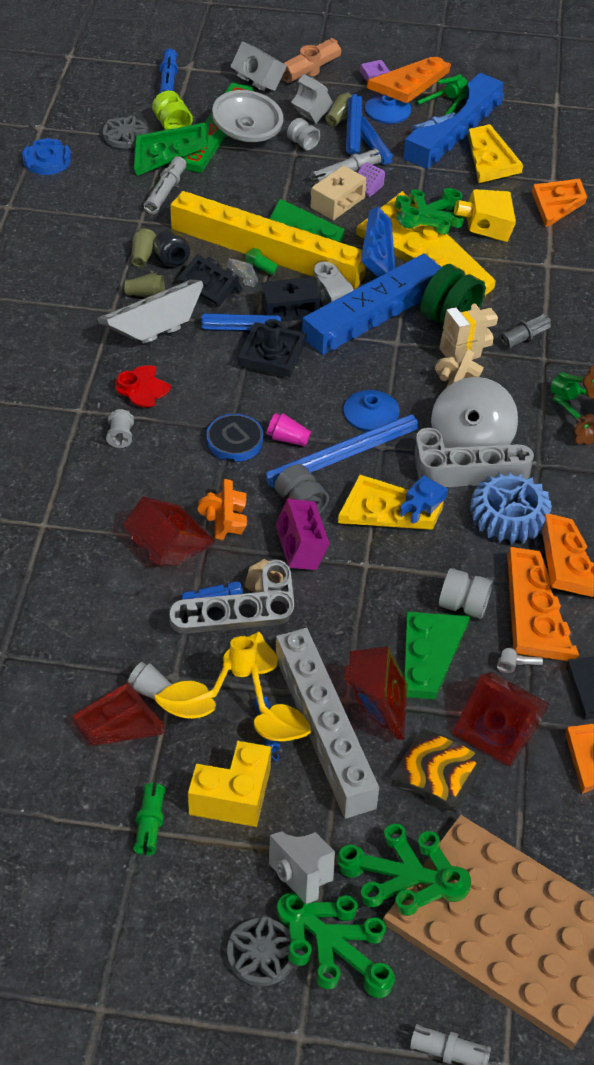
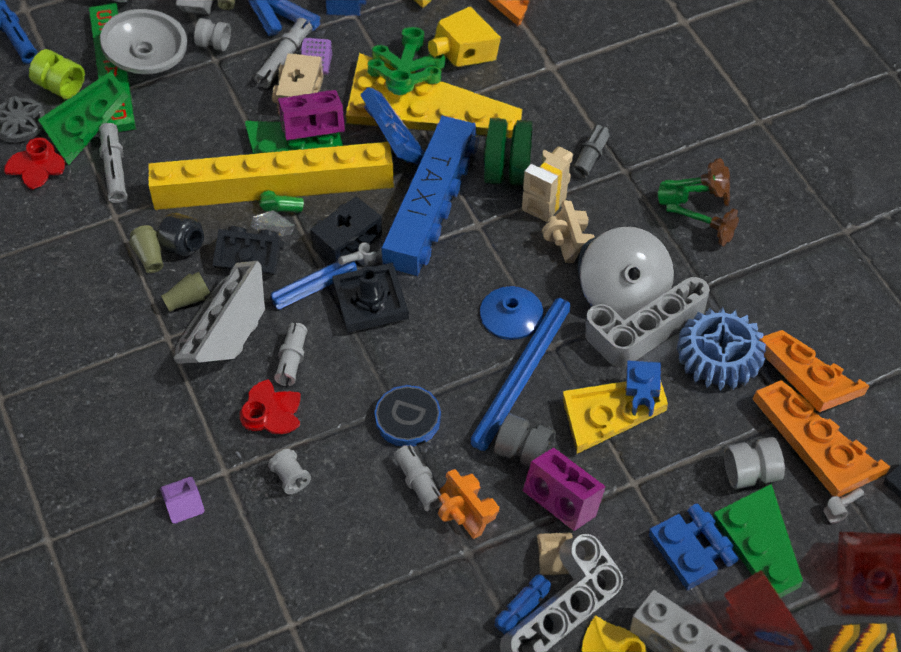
camera: 30 degrees left, 5 degrees up
(35, 412) = (182, 499): none -> medium lavender slope
(114, 163) = (35, 163): none -> red plate
(166, 532) = (429, 562): clear red slope -> none
(184, 358) = (291, 354): none -> light grey pin
(207, 475) = (418, 477): none -> light grey pin
(287, 430) = (455, 380): dark pink cone -> none
(292, 320) = (362, 256): none -> light grey hand
(325, 210) = (311, 114): none -> magenta brick
(330, 282) = (378, 194): light grey piece -> none
(363, 621) = (685, 553): none -> blue plate

